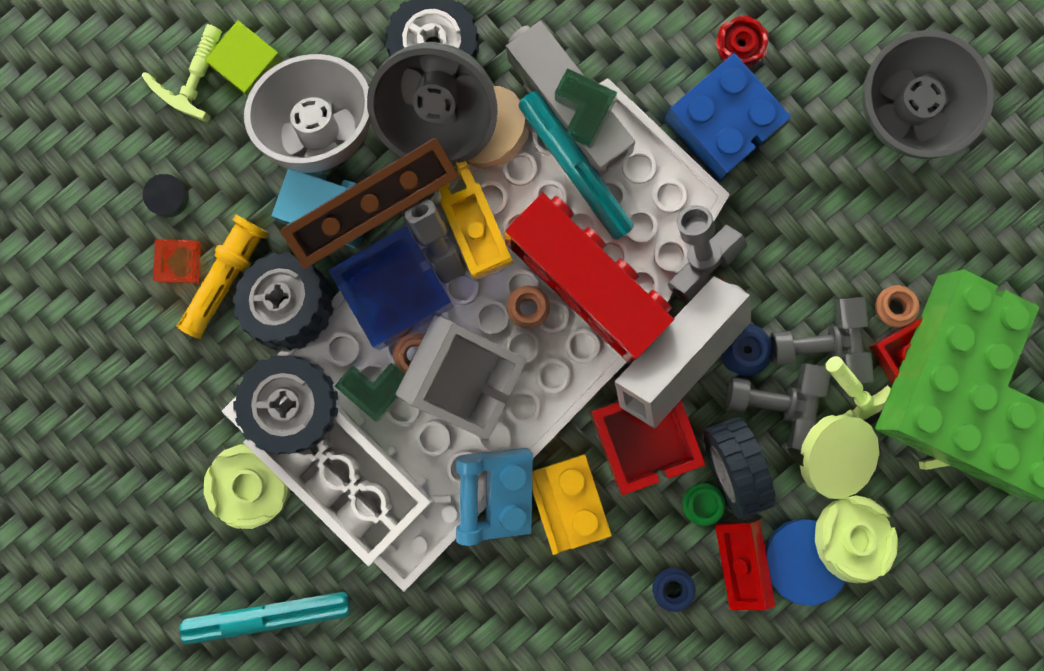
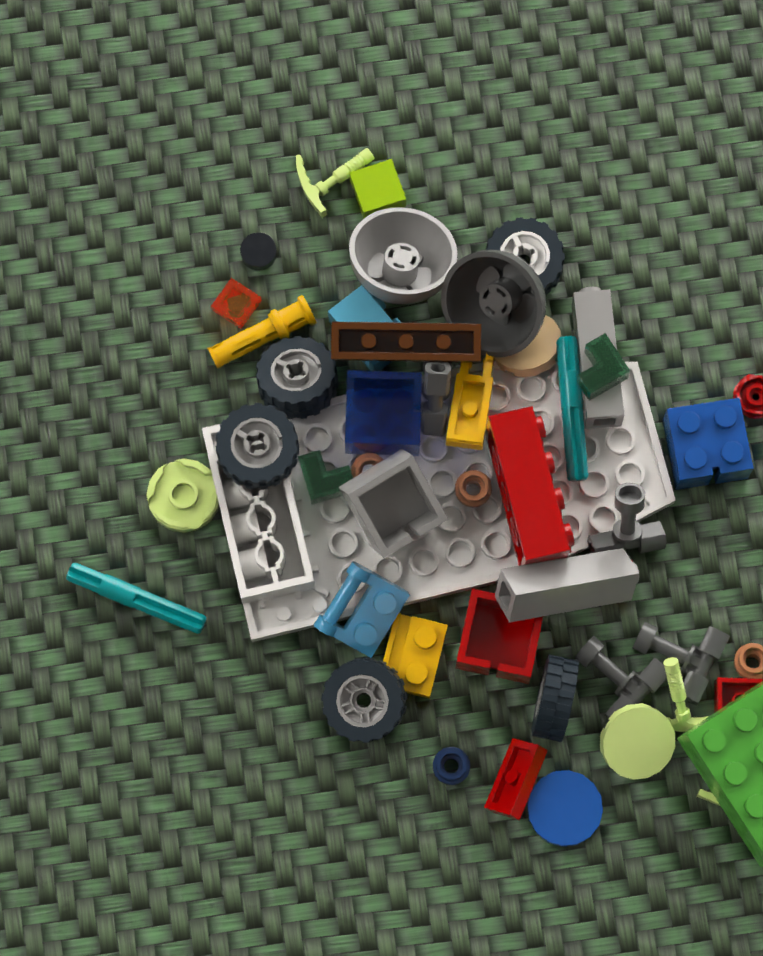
camera: 30 degrees right, 10 degrees down
(556, 605) = (360, 721): none -> black wheel
(703, 504) = (513, 717): green plate -> none
(757, 360) = (609, 632): dark blue plate -> none
(856, 539) = (612, 812): yellowish green tile -> none

